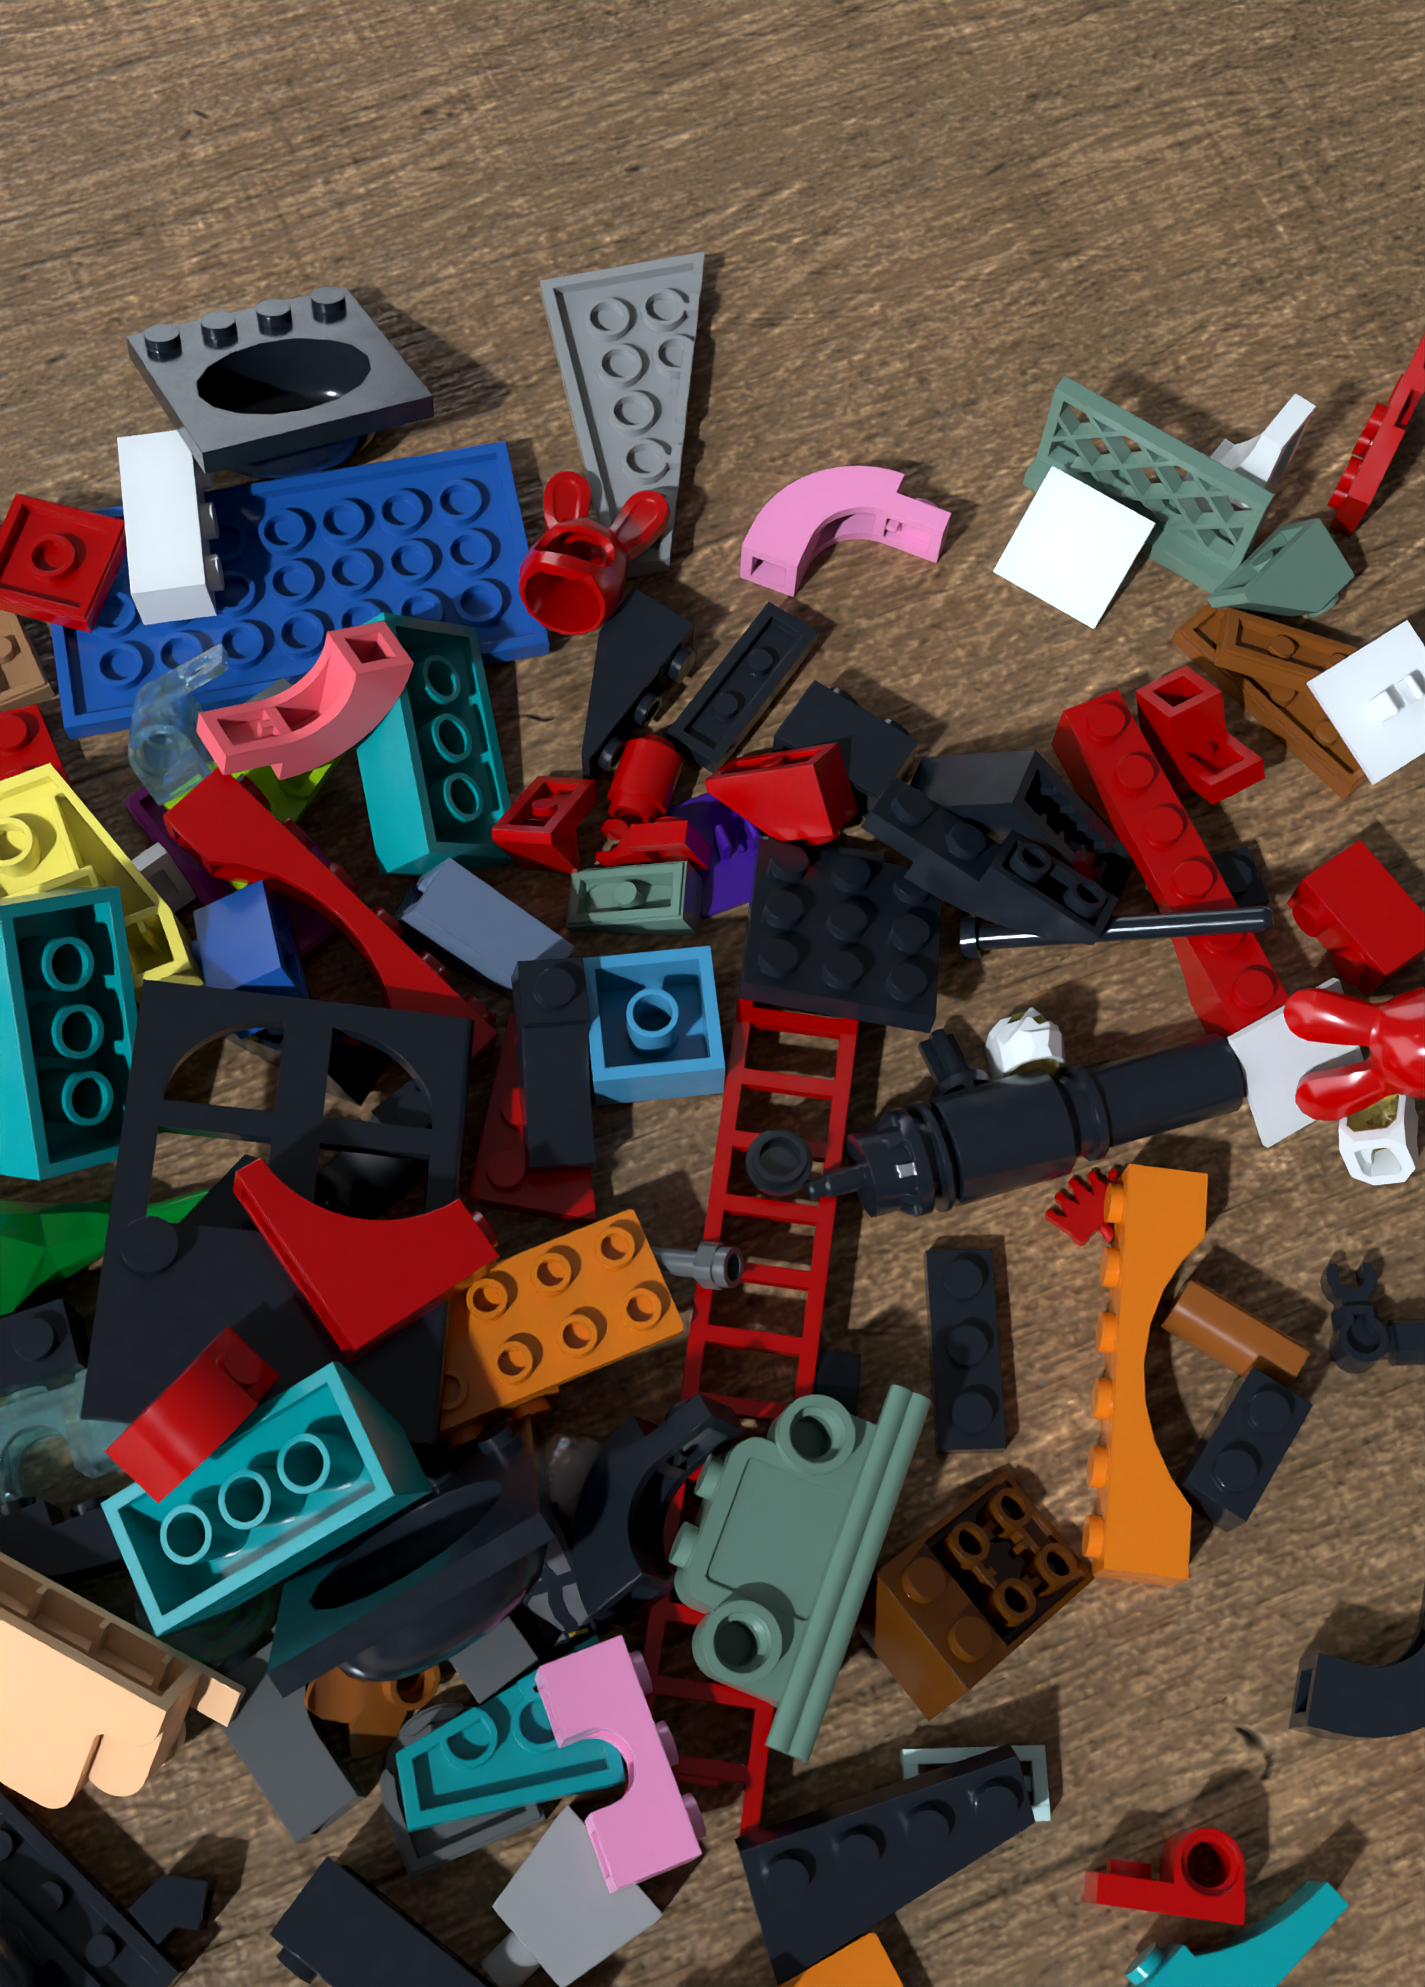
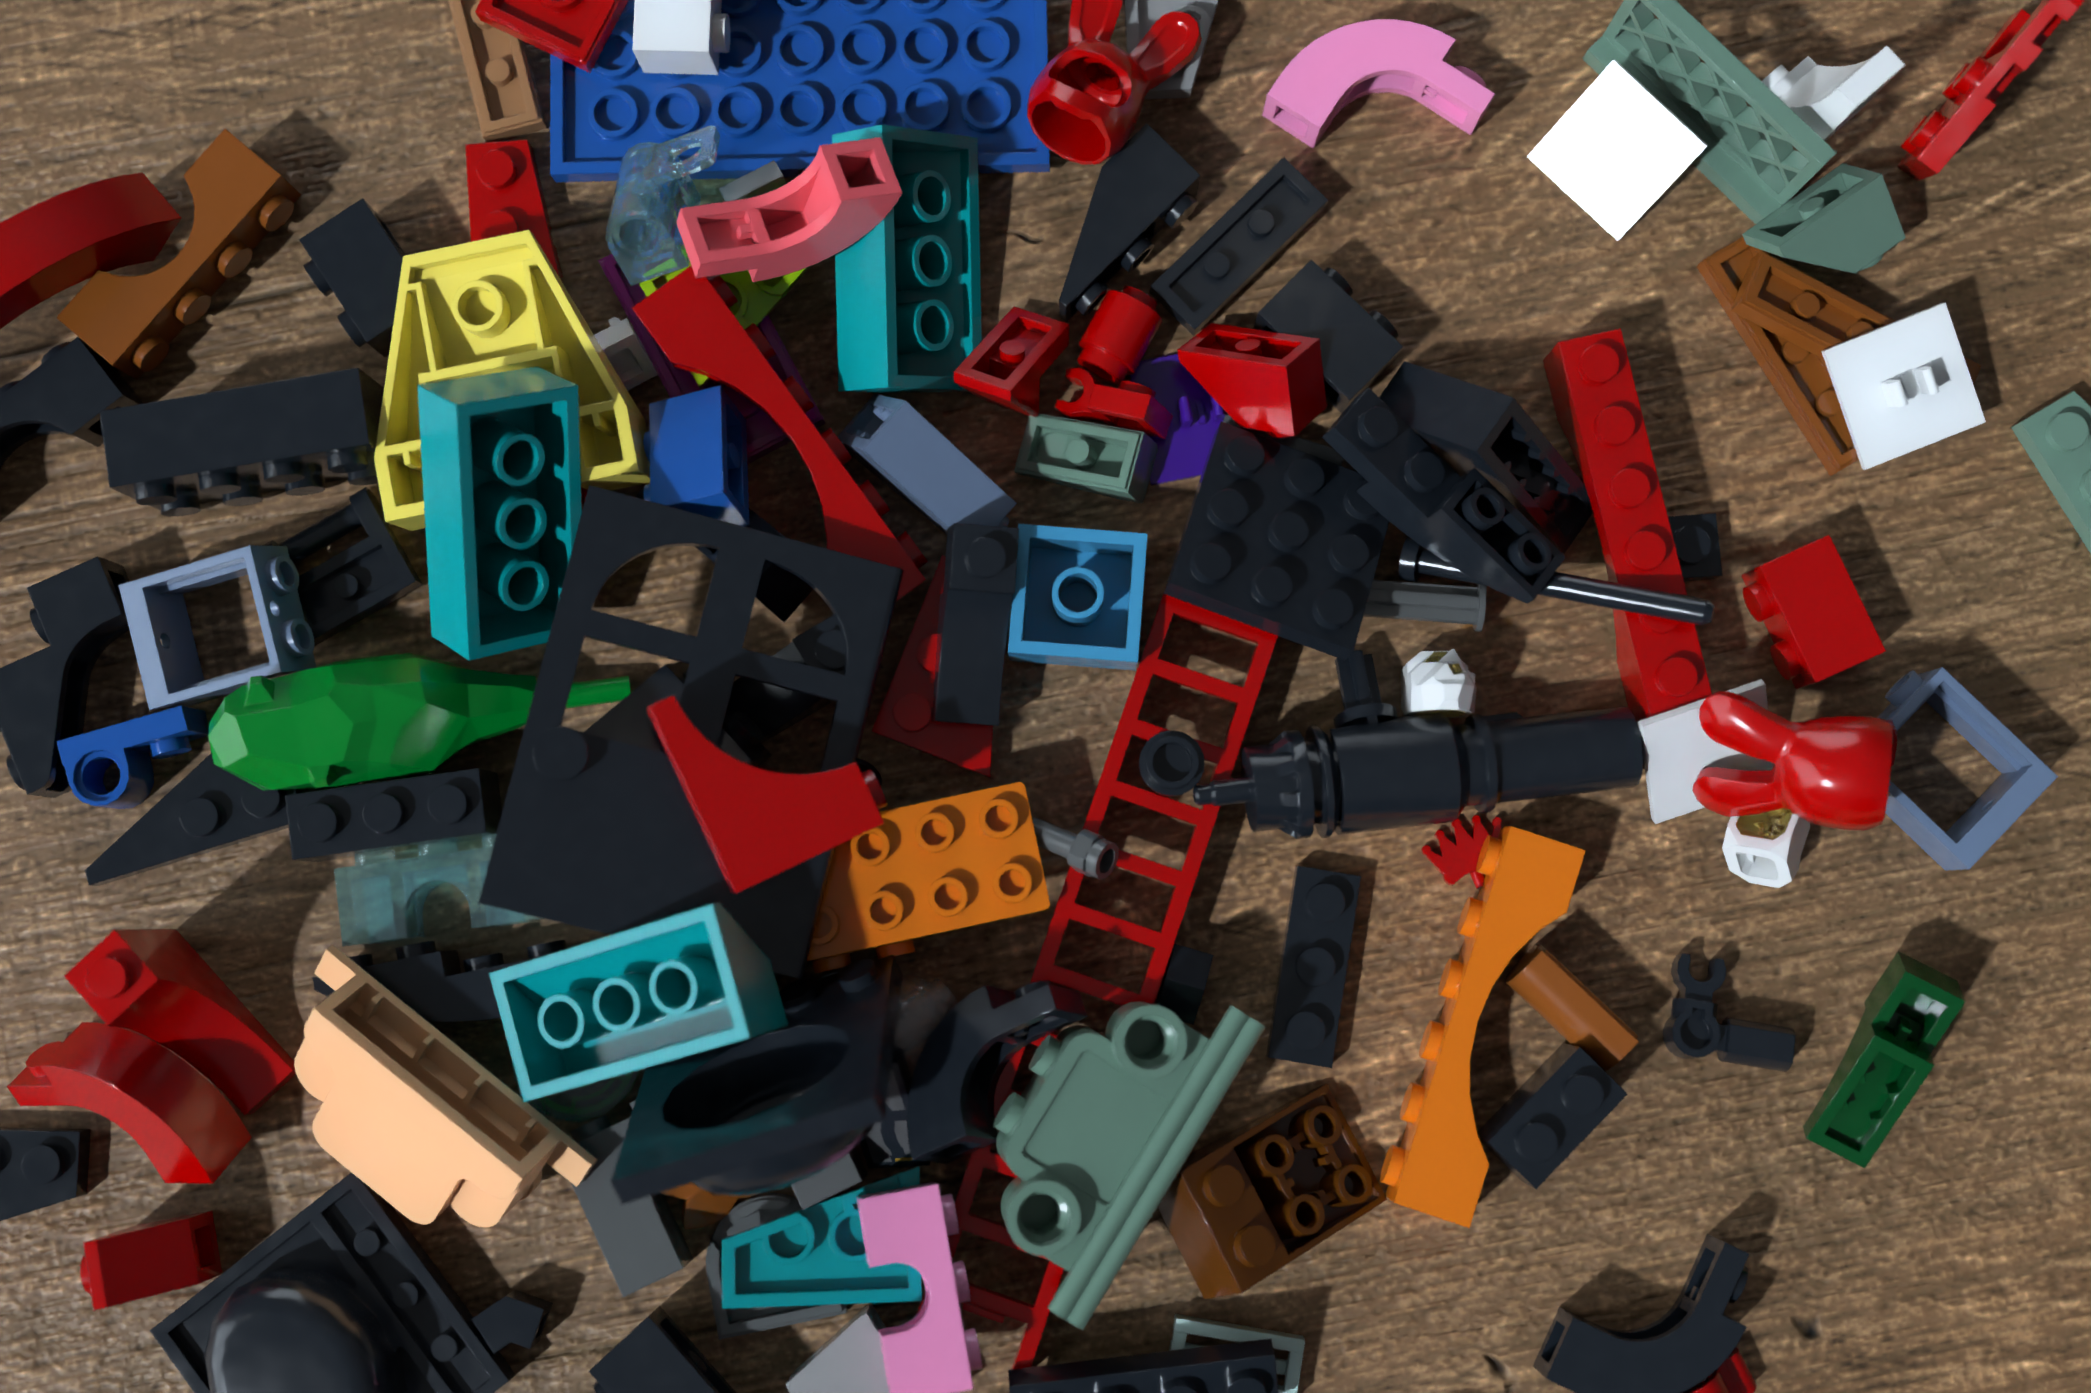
camera: 20 degrees right, 15 degrees up
(193, 1415) = (582, 928): red brick -> none
(997, 975) = (1427, 602): none -> dark grey axle
(1189, 737) = (1684, 391): red brick -> none

